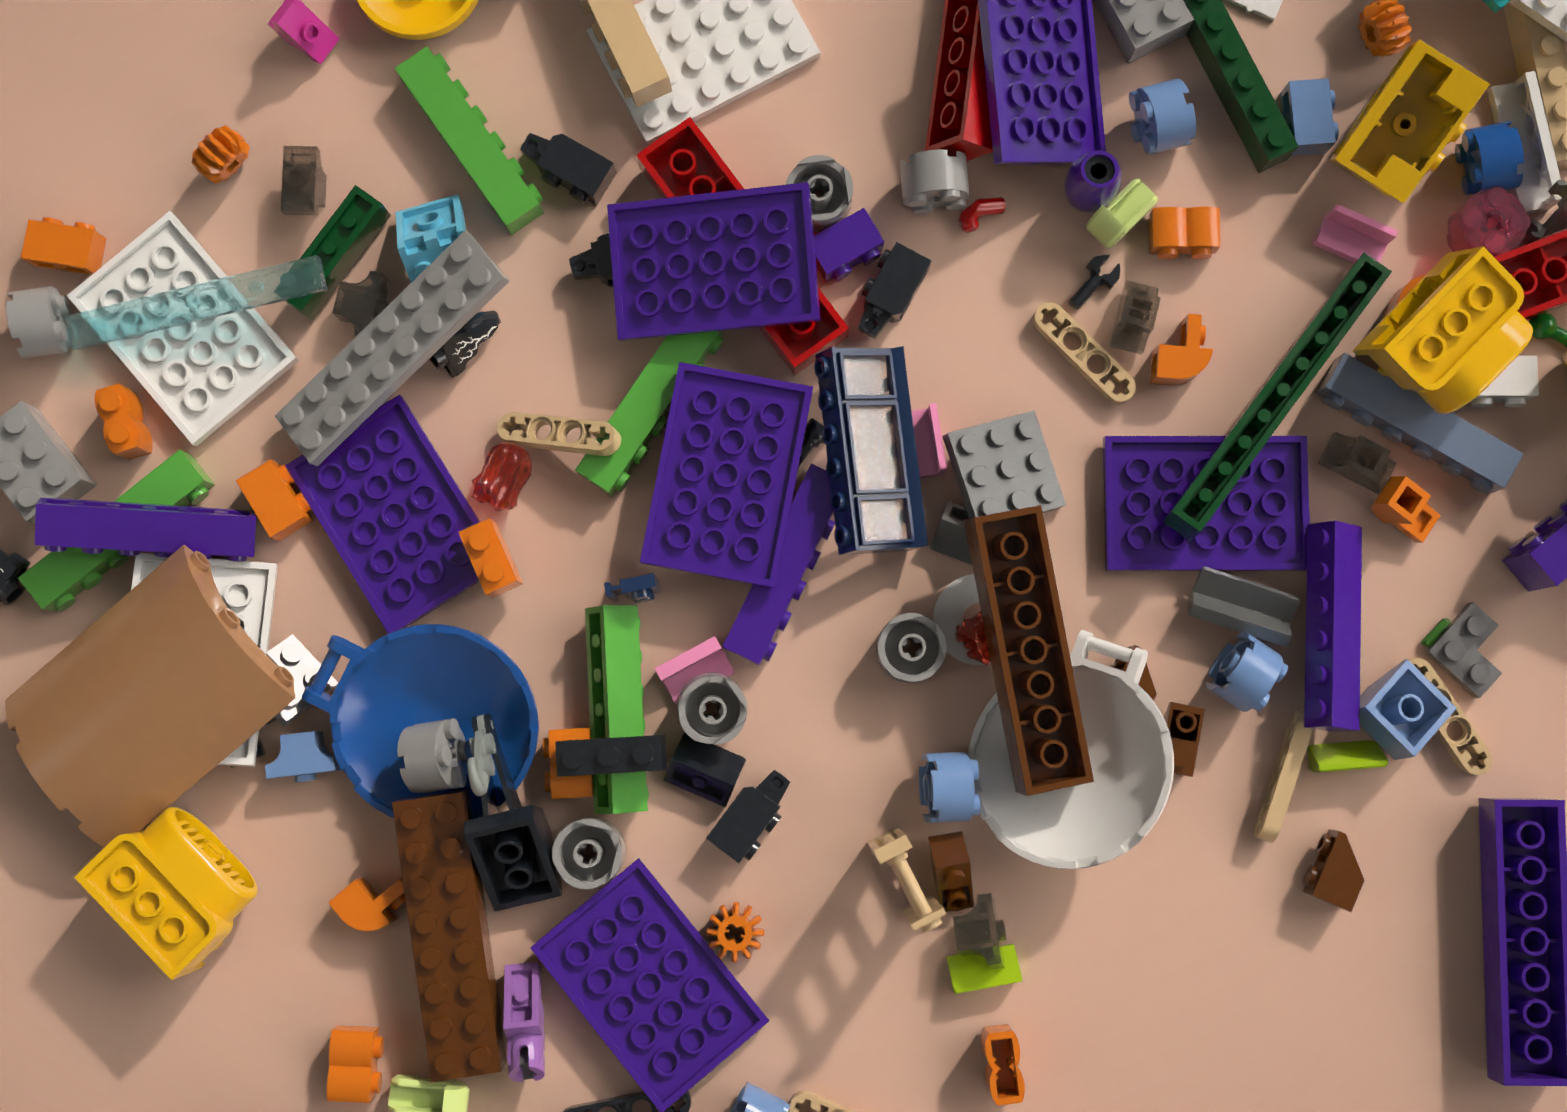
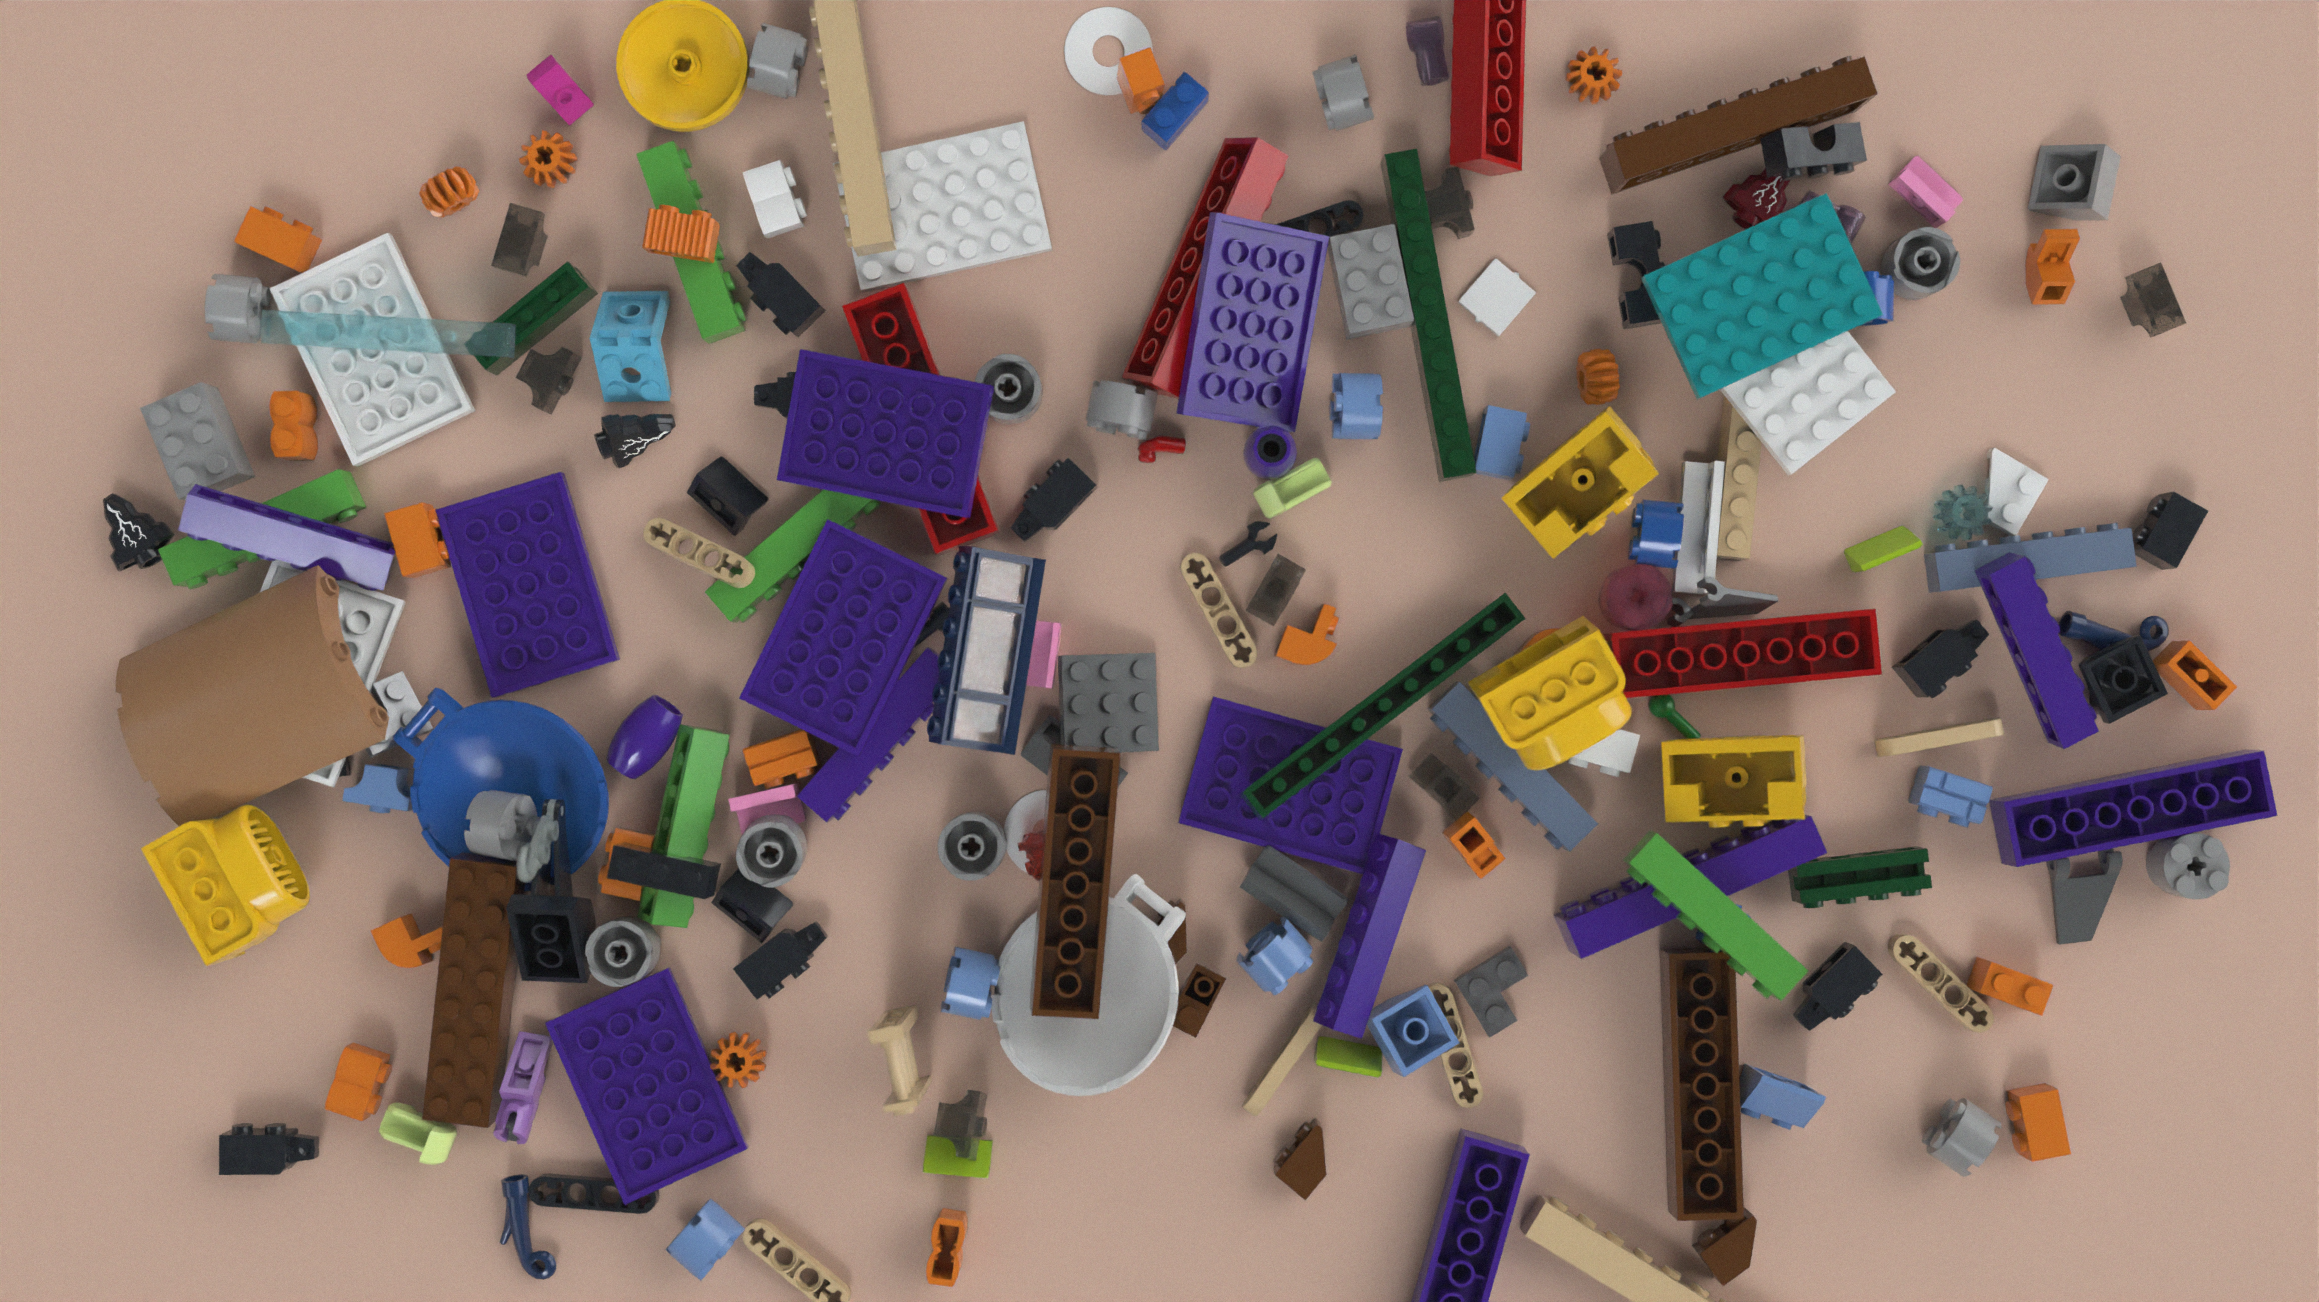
camera: 15 degrees right, 5 degrees up
(307, 112) = (536, 162): none -> orange gear
(391, 348) = (561, 430): light grey plate -> none
(460, 128) = (681, 234): none -> orange brick
(490, 558) = (602, 654): orange brick -> none
(502, 476) = (637, 577): clear red piece -> none
(539, 78) = (774, 199): none -> white brick
(553, 631) = (644, 737): none -> dark purple piece
(569, 374) = (726, 495): none -> black panel
(637, 588) = (730, 720): dark blue plate -> none
(695, 614) = (782, 757): none -> orange brick
(847, 245) = (1020, 446): dark purple brick -> none
(951, 871) = (951, 1060): reddish brown slope -> none
(1184, 231) = (1347, 521): orange brick -> none
(1352, 234) = (1506, 572): bright pink panel -> none
(1435, 632) = (1465, 968): bright green leg -> none

